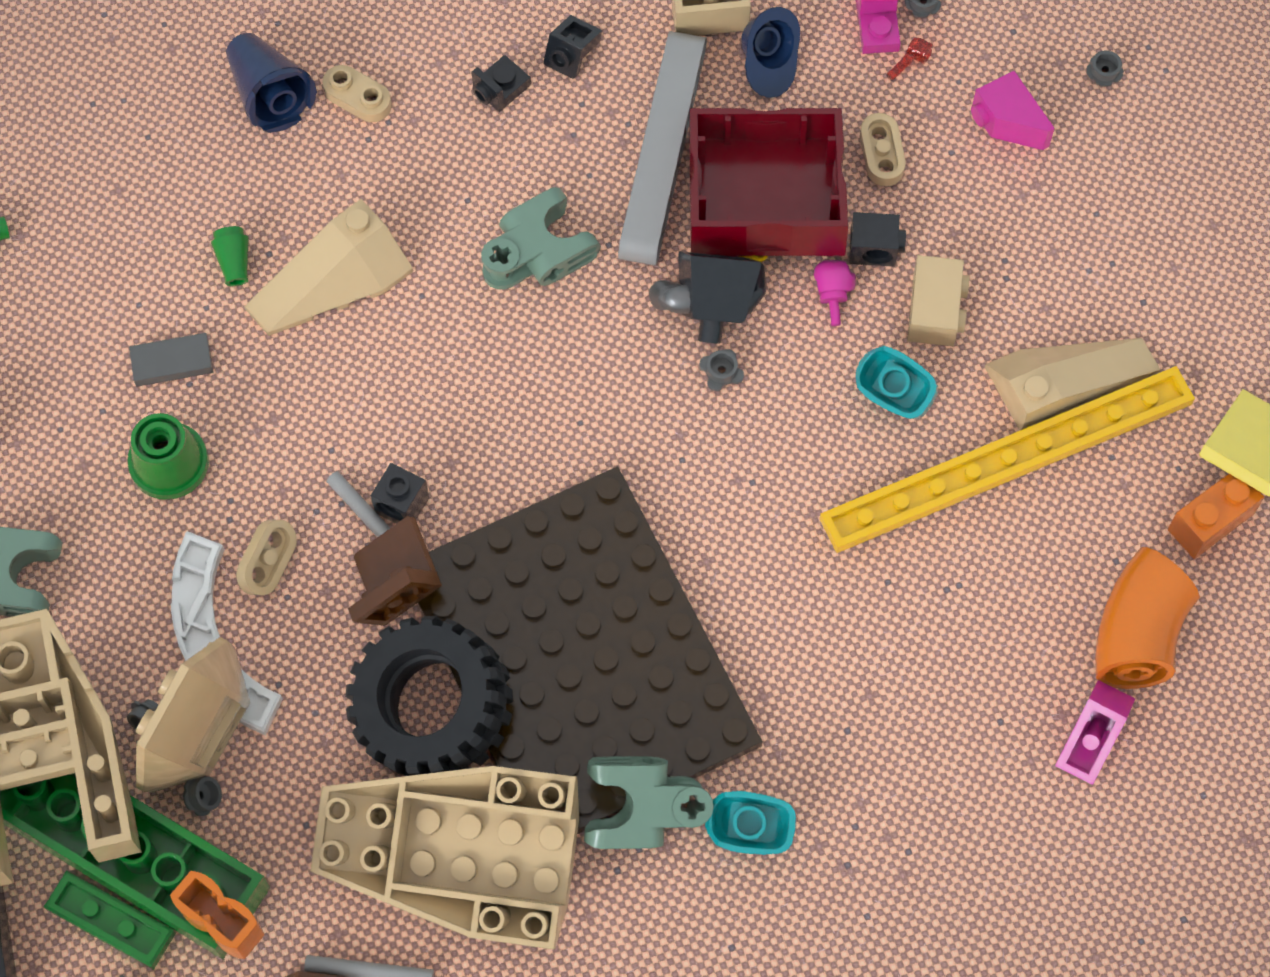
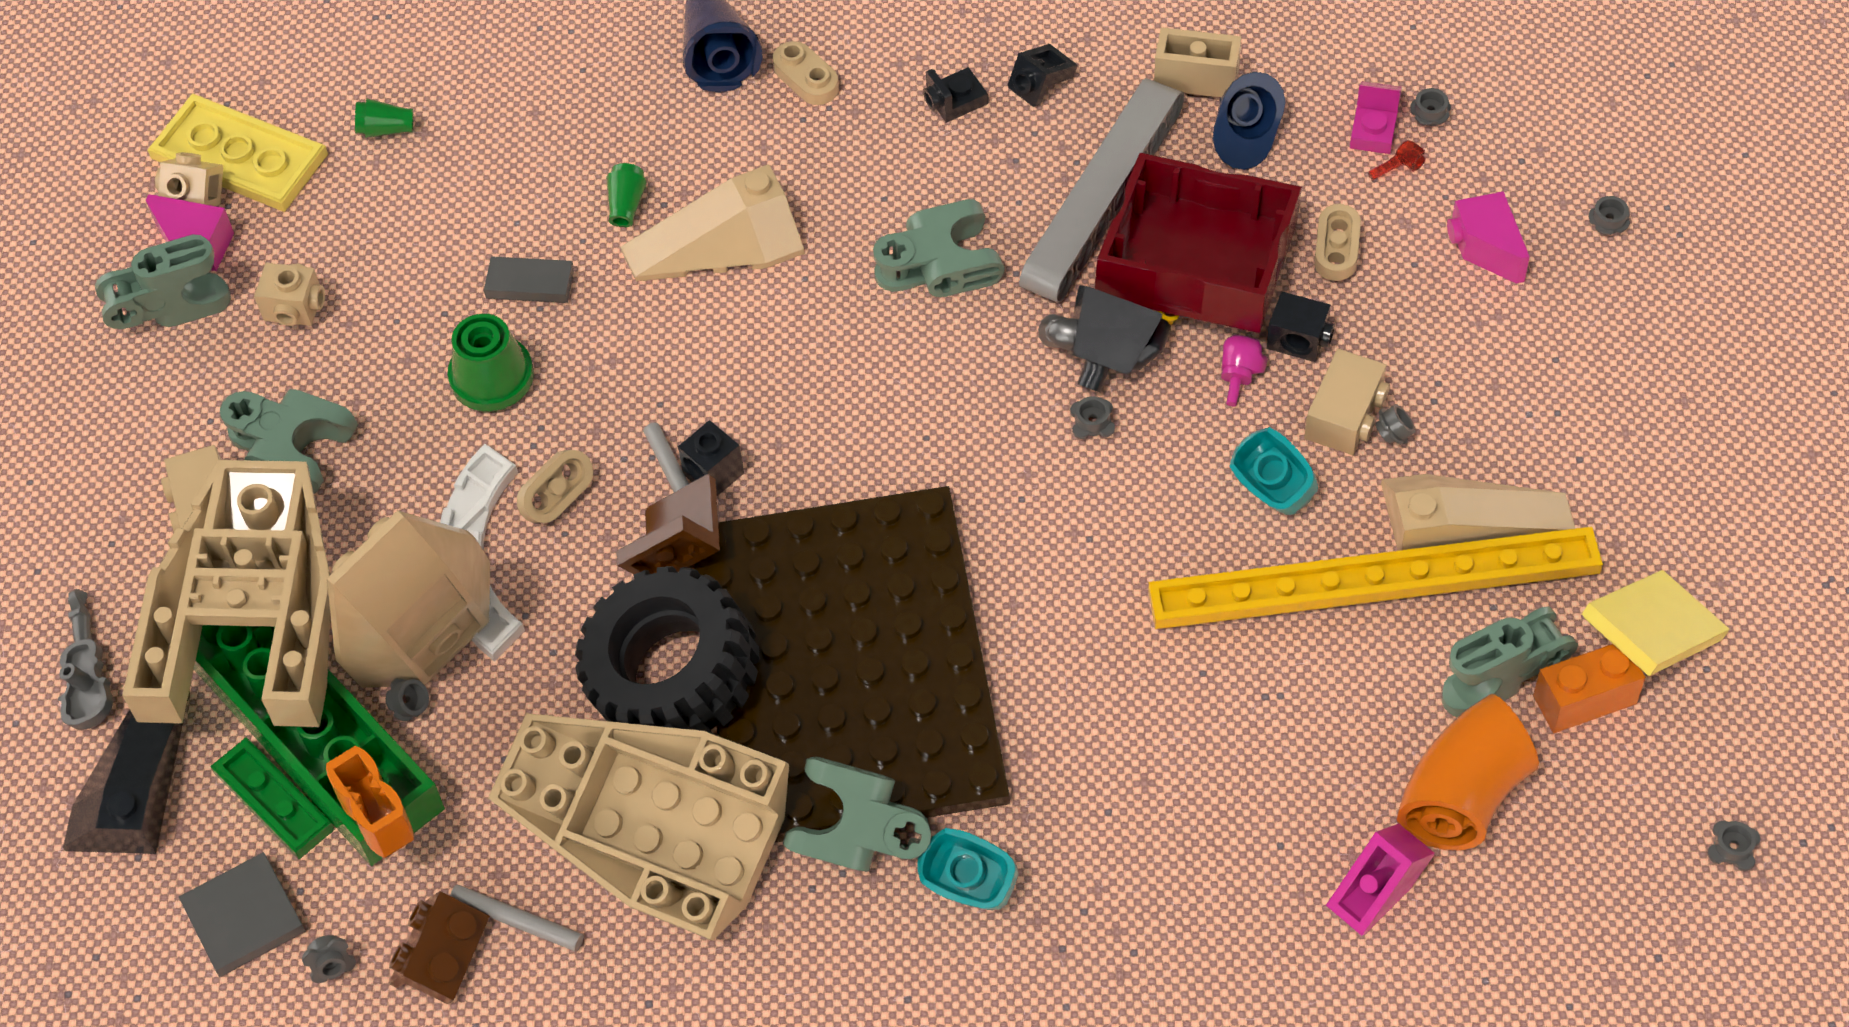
camera: 20 degrees right, 10 degrees down
(983, 311) = (1395, 425): none -> dark grey plate
(1141, 510) = (1503, 657): none -> sand green piece

